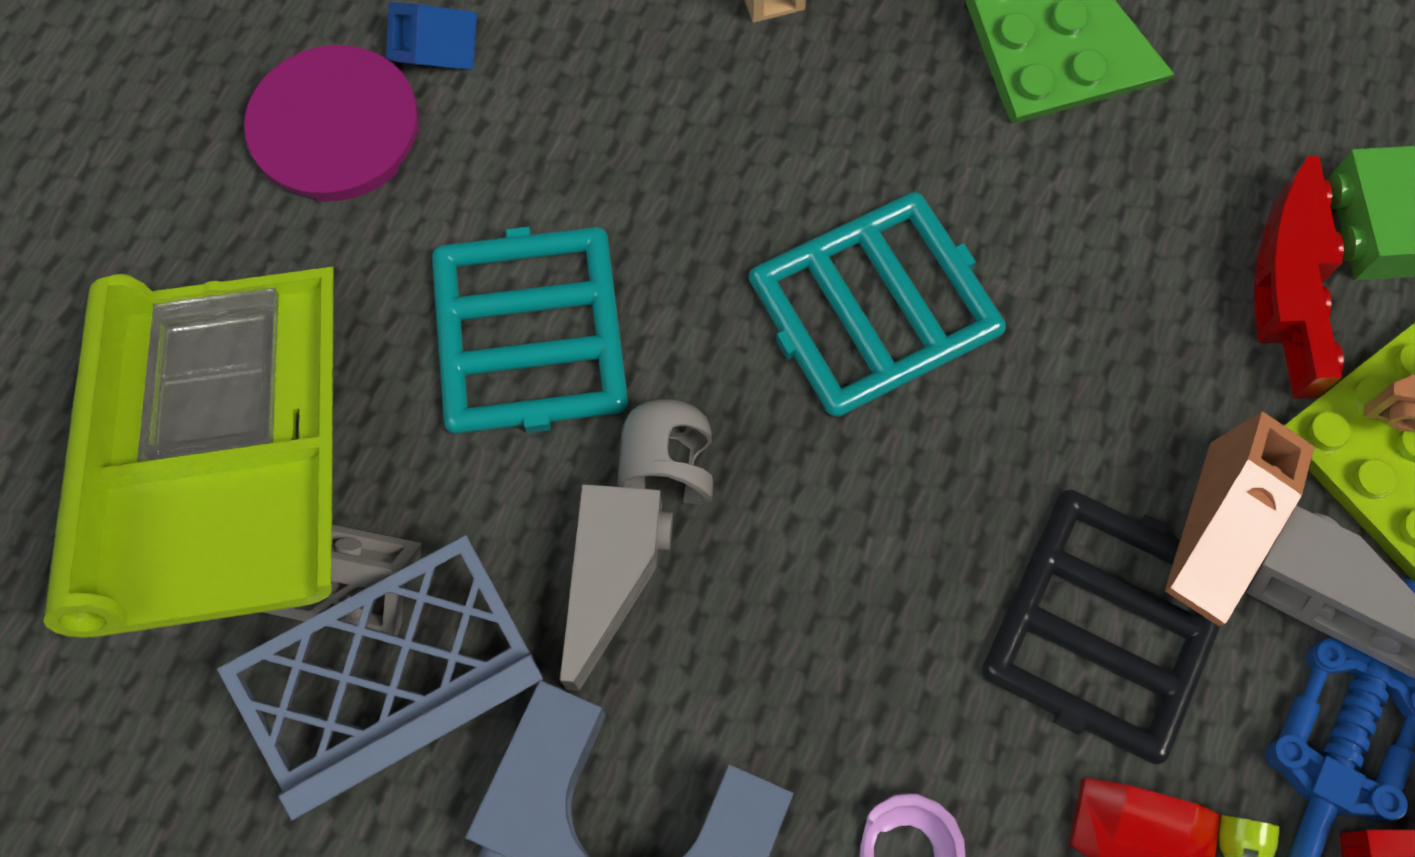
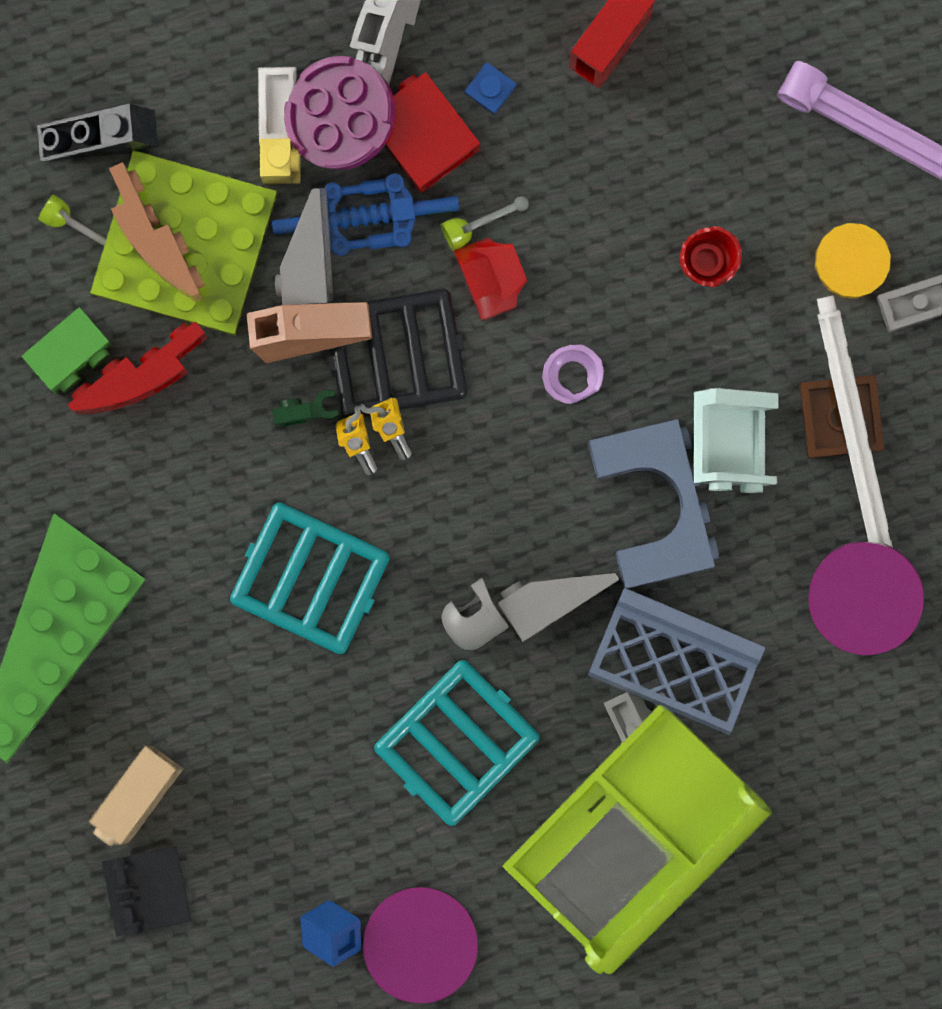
camera: 125 degrees left, 15 degrees up
(1021, 525) = (385, 419): none -> piece
(1117, 427) = (294, 412): none -> dark green plate

